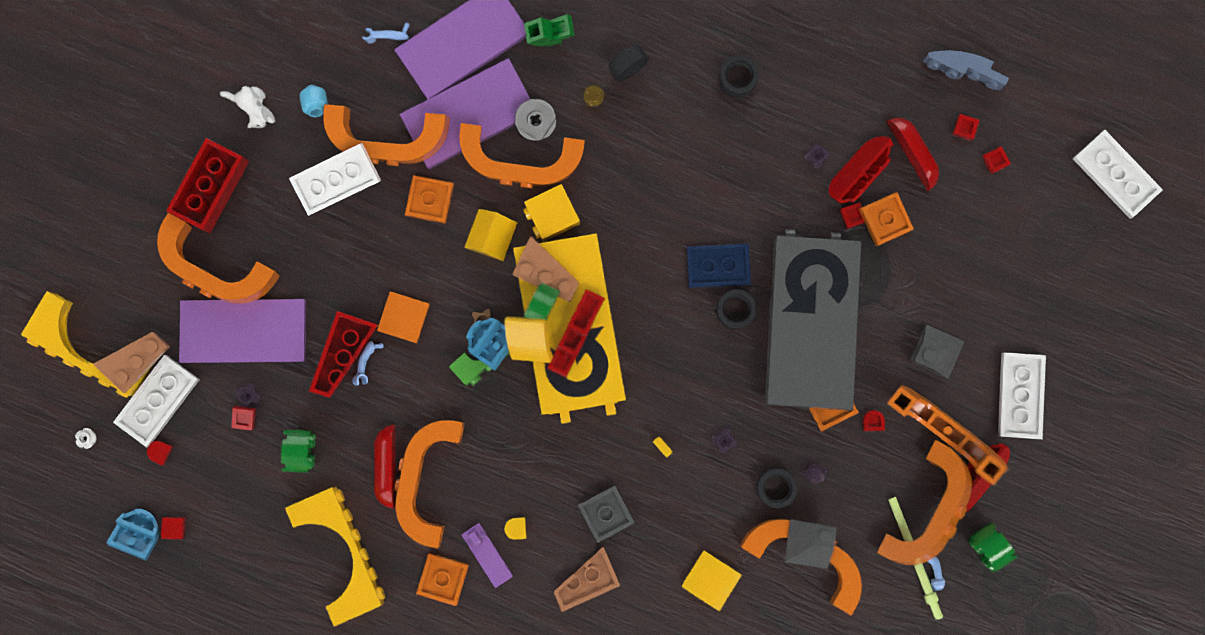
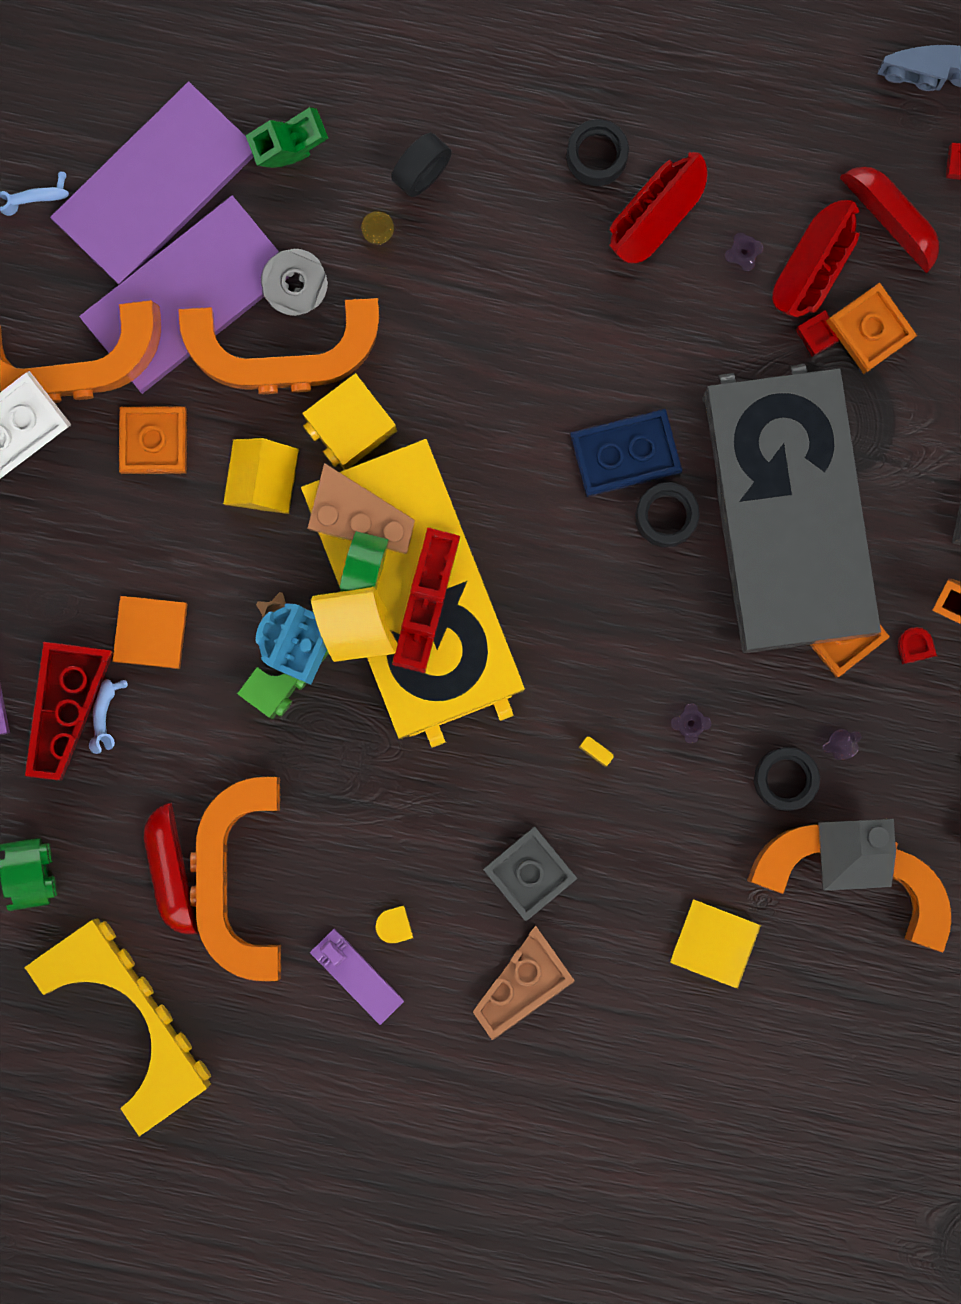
camera: 15 degrees left, 0 degrees up
(442, 579) = (294, 1028): orange tile -> none
(769, 118) = (658, 208): none -> red brick

